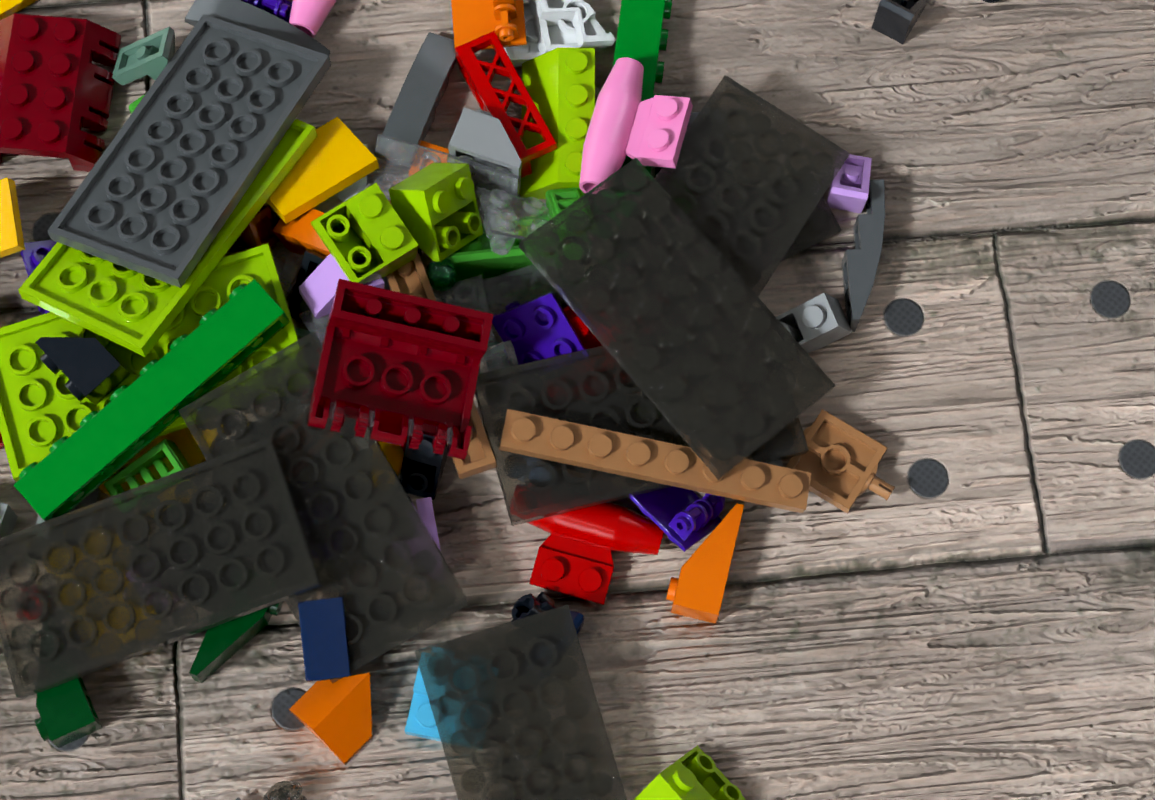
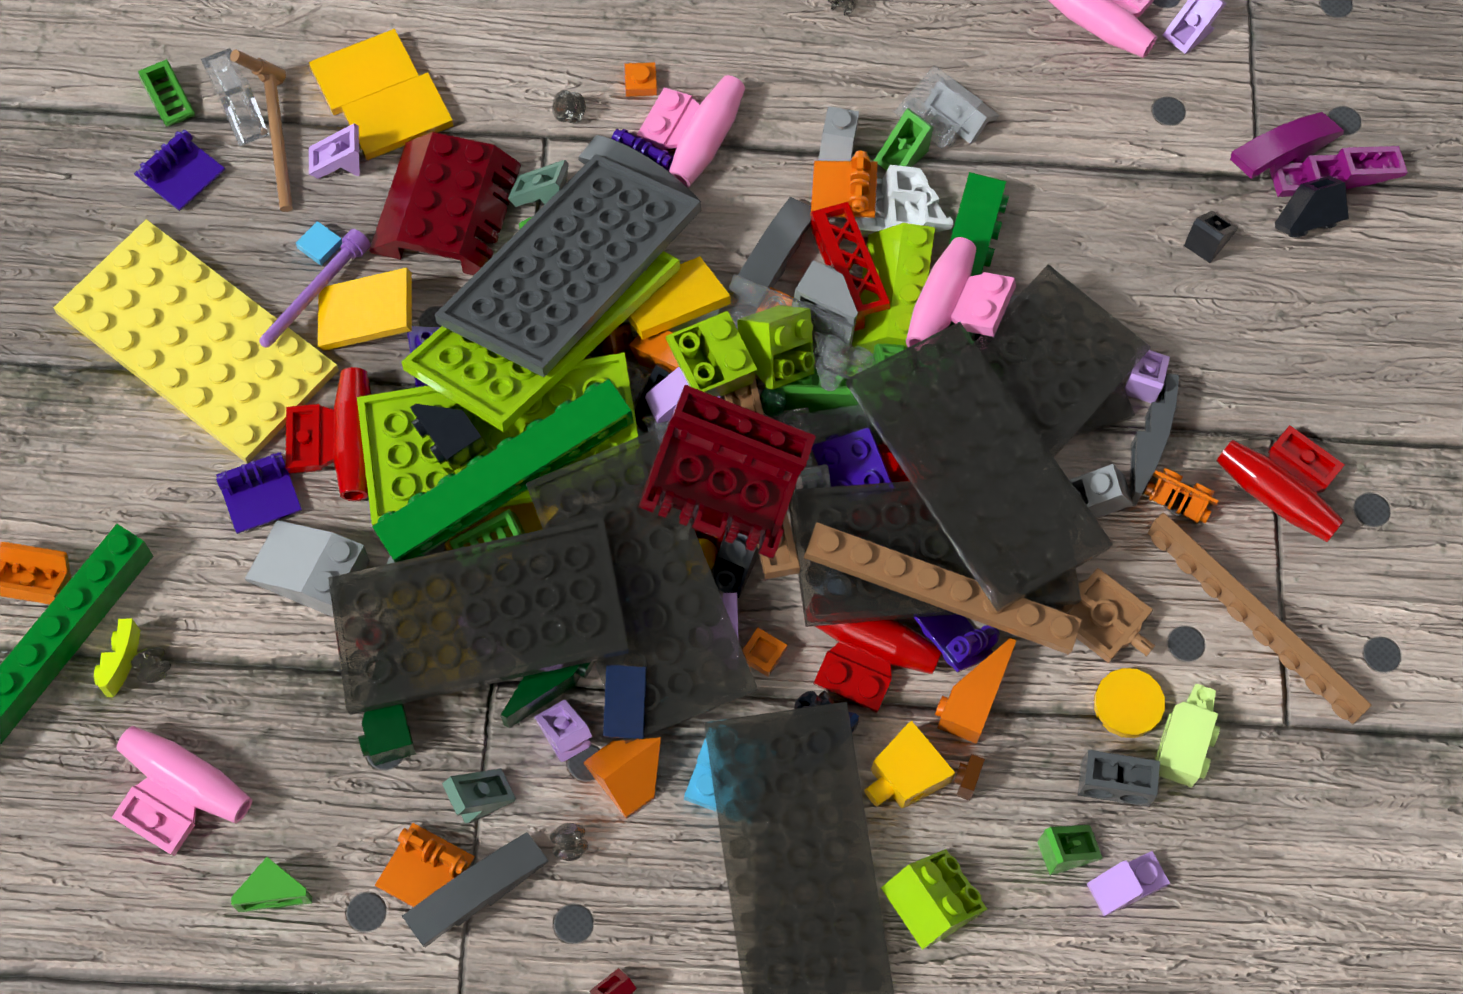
camera: 10 degrees right, 5 degrees down
(177, 763) = (478, 793): none -> sand green slope
(262, 677) = (564, 730): none -> lavender slope
(469, 557) = (764, 651): none -> orange plate
(644, 665) = (908, 769): none -> yellow torso
(711, 662) = (968, 776): none -> reddish brown plate
(829, 724) = (1068, 847): none -> bright green slope
(873, 641) = (1119, 778): none -> dark grey brick
(874, 554) = (1129, 702): none -> yellow tile
(897, 753) = (1128, 883): none -> lavender slope
(921, 323) = (1199, 495): none -> orange hinge
(942, 584) = (1187, 738): none -> yellowish green hinge
(1010, 447) = (1265, 625): none -> medium nougat plate
(1017, 280) = (1288, 480): none -> red plate

